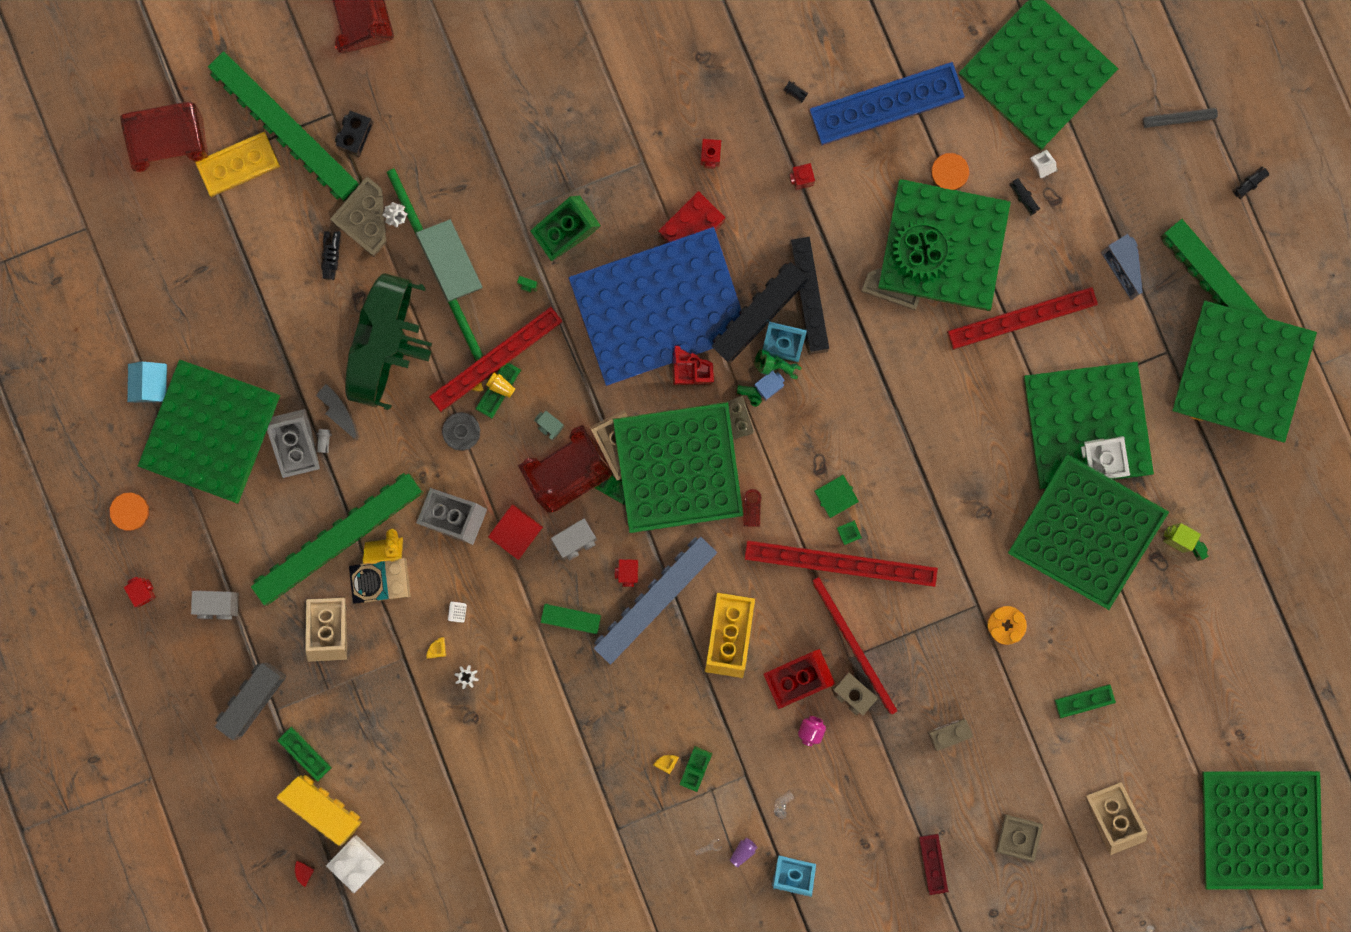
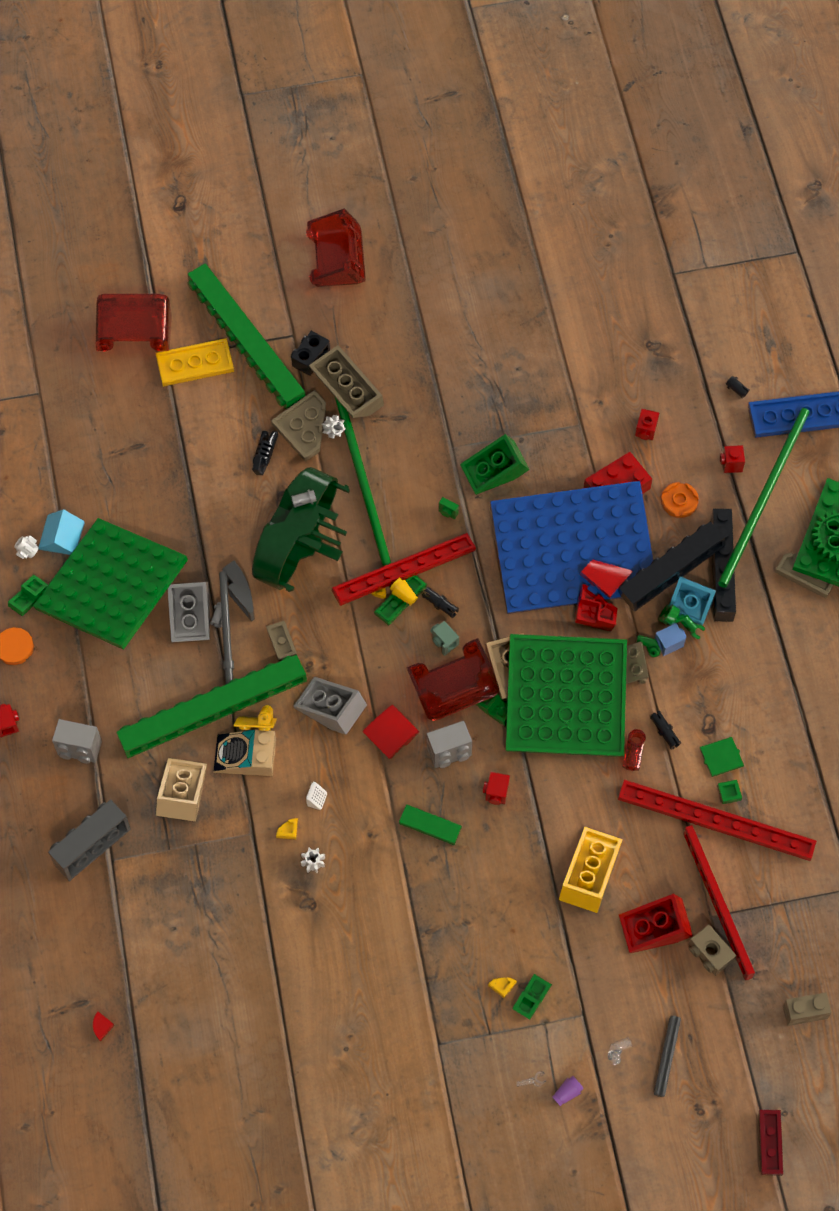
camera: 15 degrees right, 20 degrees down
(115, 406) = (26, 547): none -> white gear
(130, 455) = (29, 593): none -> green slope
(304, 754) = (130, 907): green tile -> none
(320, 810) = (135, 960): yellow slope -> none
(343, 491) = (228, 663): none -> dark grey bar
(355, 864) = (157, 1024): white brick -> none
(382, 318) = (304, 498): none -> light grey pin
(390, 458) = (281, 640): none -> dark tan plate
(398, 165) = (347, 383): none -> dark tan slope
(448, 260) = (376, 475): sand green tile -> none
(461, 431) = (356, 630): dark grey tile -> none
(538, 387) = (440, 602): none -> black pin
(655, 600) = (519, 821): sand blue brick -> none
(696, 333) = (605, 576): none -> red slope
(756, 229) = (679, 500): none -> orange tile
(778, 480) = (665, 730): none -> black pin
(794, 876) = (618, 1127): medium azure slope -> none
(812, 730) = (661, 979): dark pink head -> none
(828, 801) = (667, 1056): none -> dark grey axle
(839, 218) = (763, 498): none -> green piece

